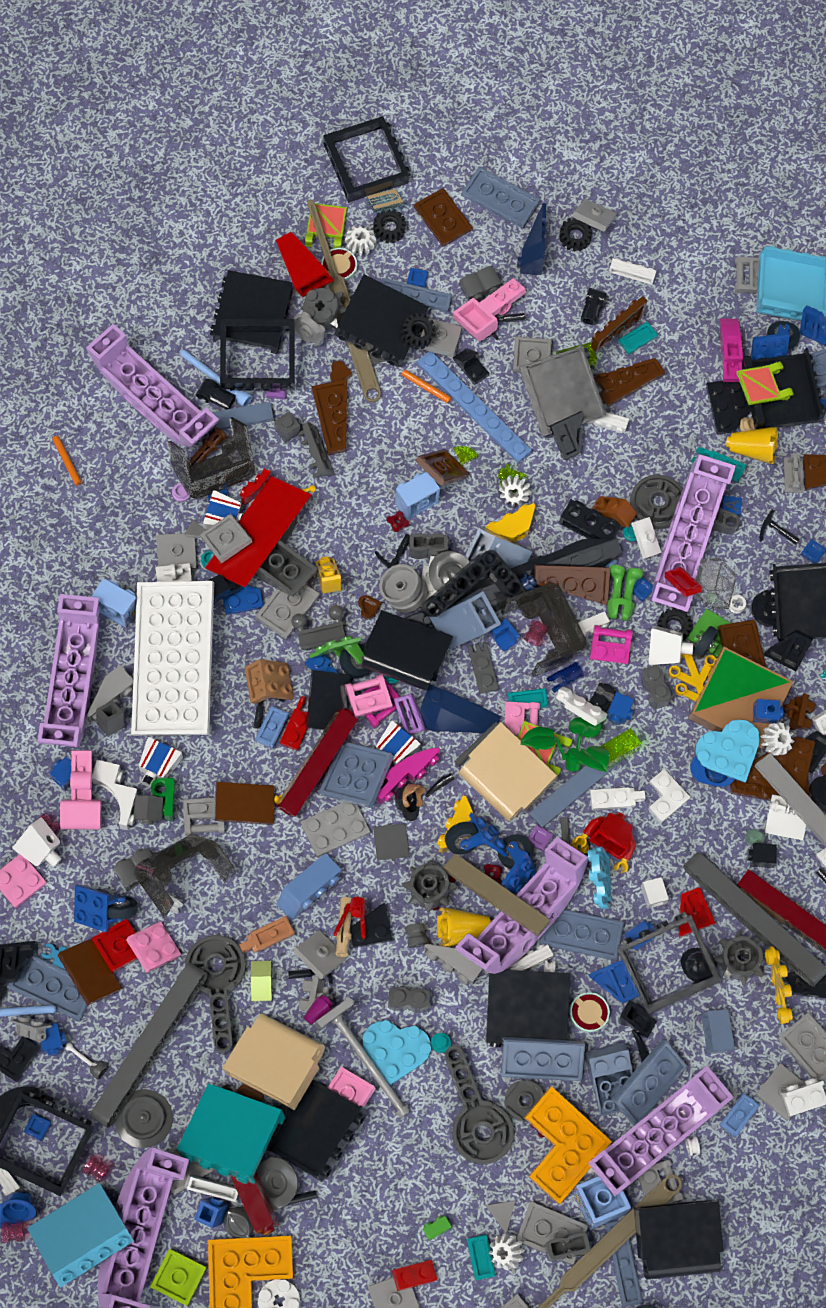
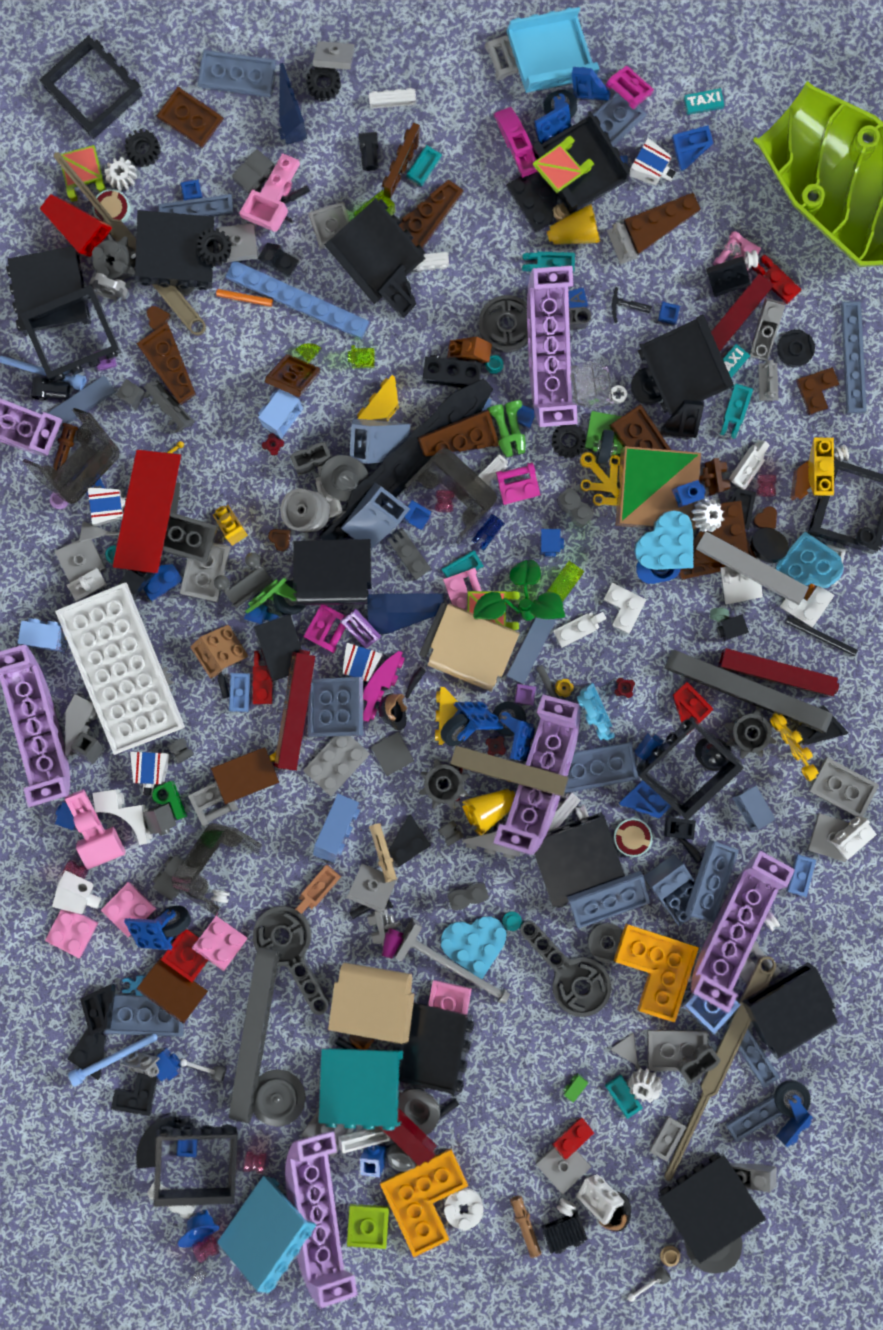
camera: 15 degrees left, 15 degrees up
(81, 873) = (127, 904): none -> bright pink plate
(194, 756) = (177, 747): none -> dark grey wheel
(226, 538) = (119, 531): light grey plate -> none
(252, 489) = (124, 471): red slope -> none
(261, 981) = (328, 931): yellowish green slope -> none
(357, 909) = (388, 833): red plant -> none
(371, 701) = (320, 632): bright pink plate -> none
(385, 200) = (127, 123): piece -> none
(400, 551) = (287, 473): black piece -> none
(469, 580) = (365, 480): black beam -> none
(518, 497) = (375, 364): white gear -> none
(529, 582) = (419, 457): dark blue plate -> none
(581, 707) = (514, 555): white hinge -> none
(603, 696) = (529, 538): black bracket -> none
(613, 835) = (590, 667): red torso -> none
(636, 864) = (620, 691): none -> dark red plate
(646, 537) = (510, 365): white plate -> none
(654, 892) = (649, 704): white panel -> none
(667, 646) = (571, 465): white torso -> none
(683, 581) = (562, 397): red tile -> none

